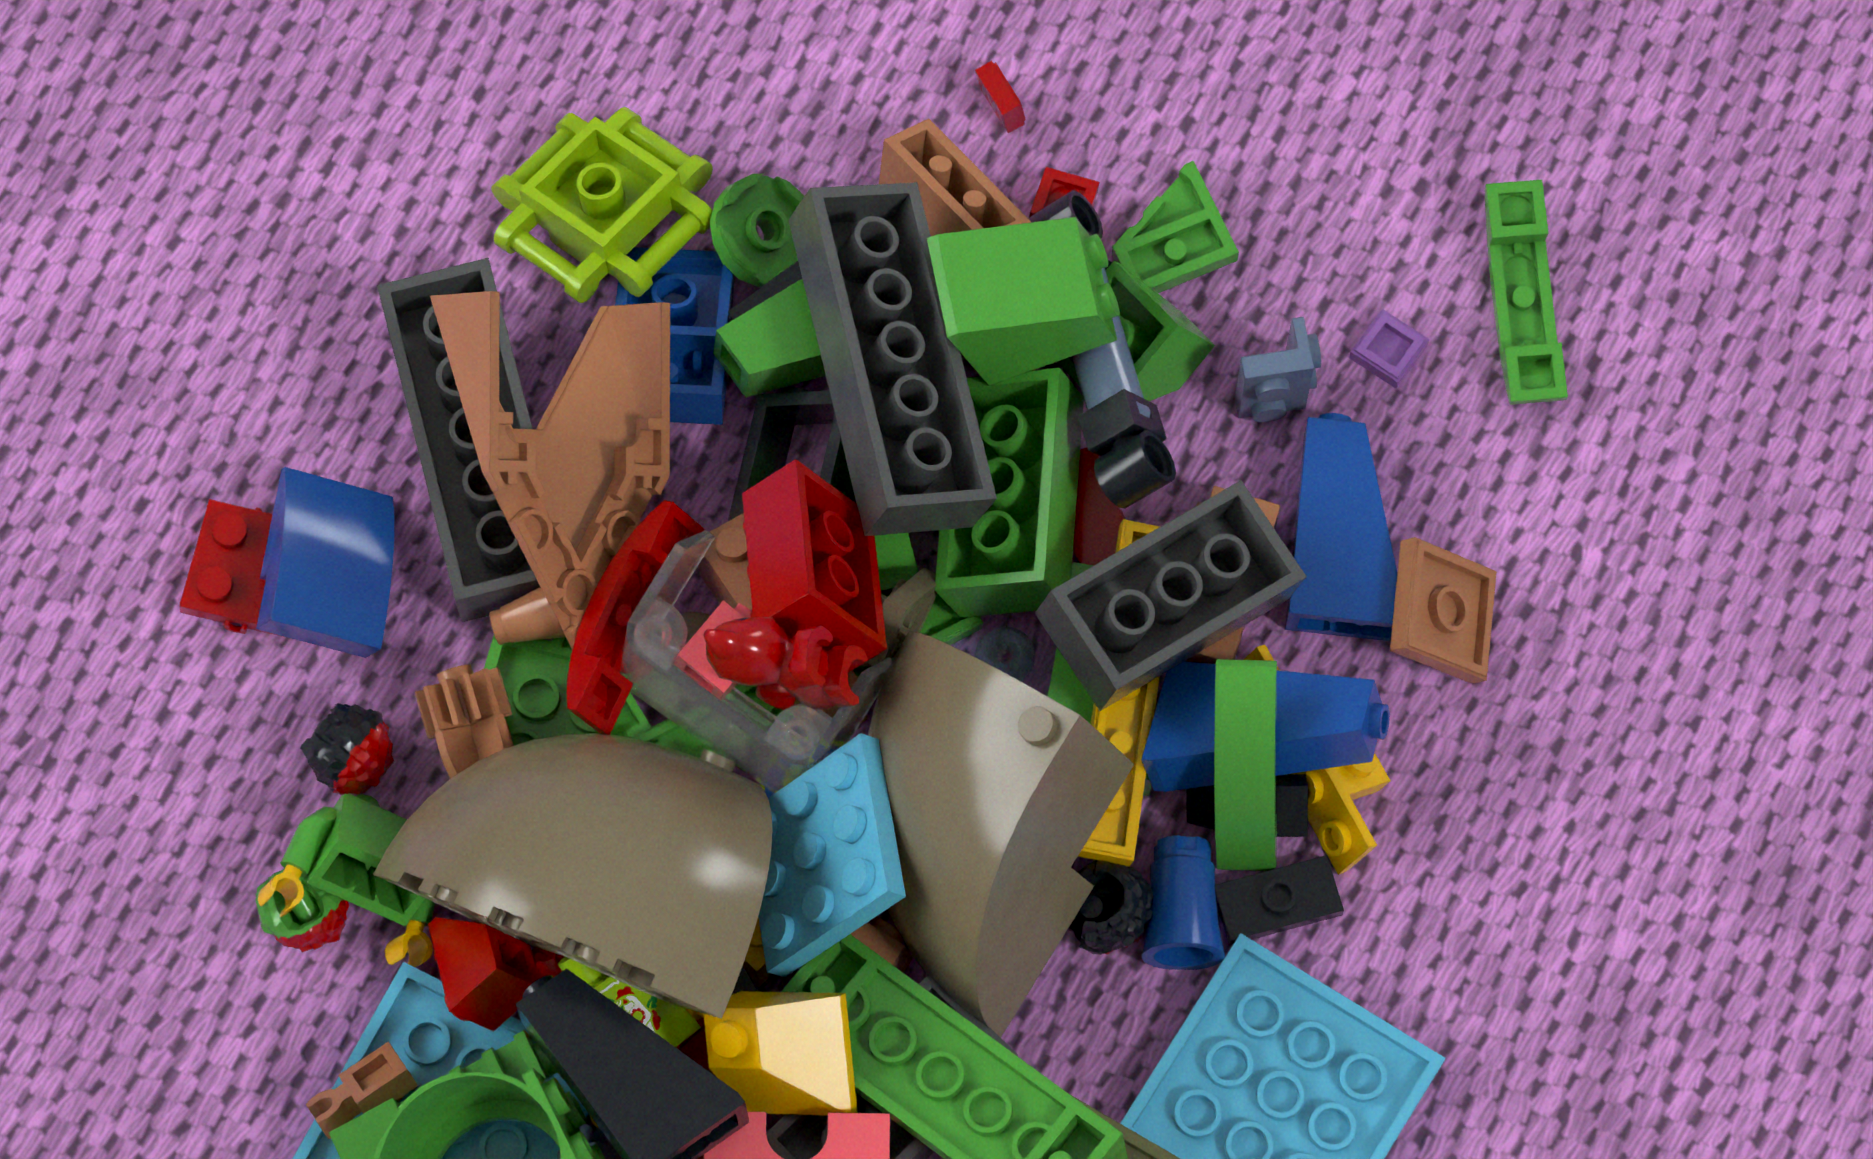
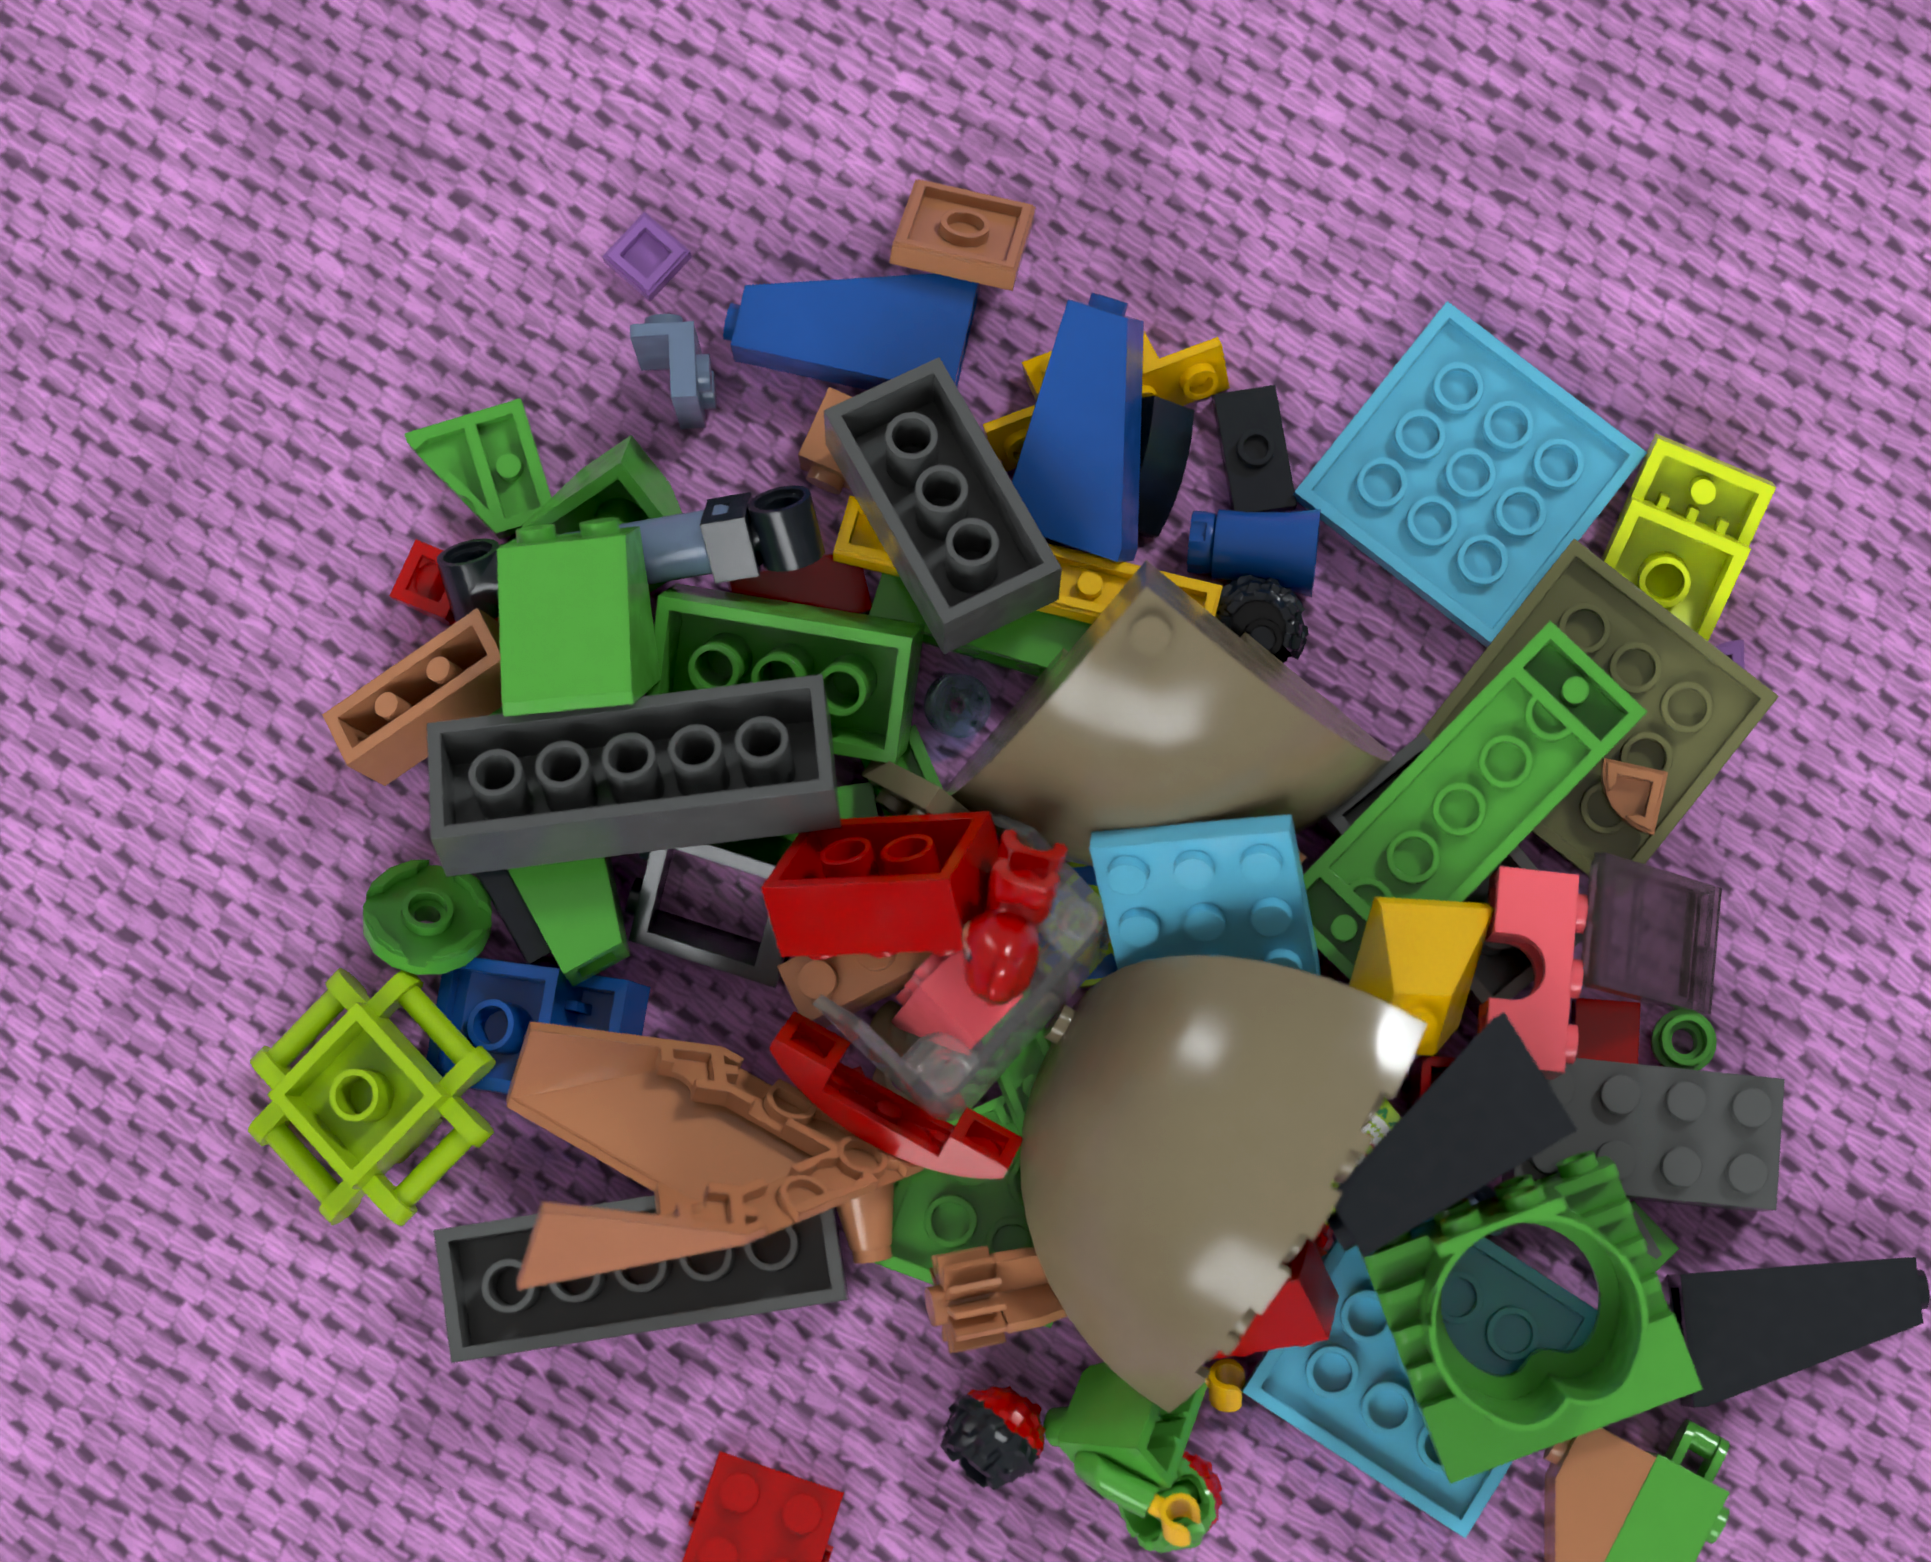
camera: 85 degrees left, 10 degrees up
(328, 564) = (773, 1443): blue slope -> none
(364, 1086) = (1393, 1436): nougat plate -> none
(1000, 96) = (296, 636): red tile -> none
(1245, 765) = (1132, 448): bright green slope -> none
(1523, 293) = (606, 108): bright green slope -> none

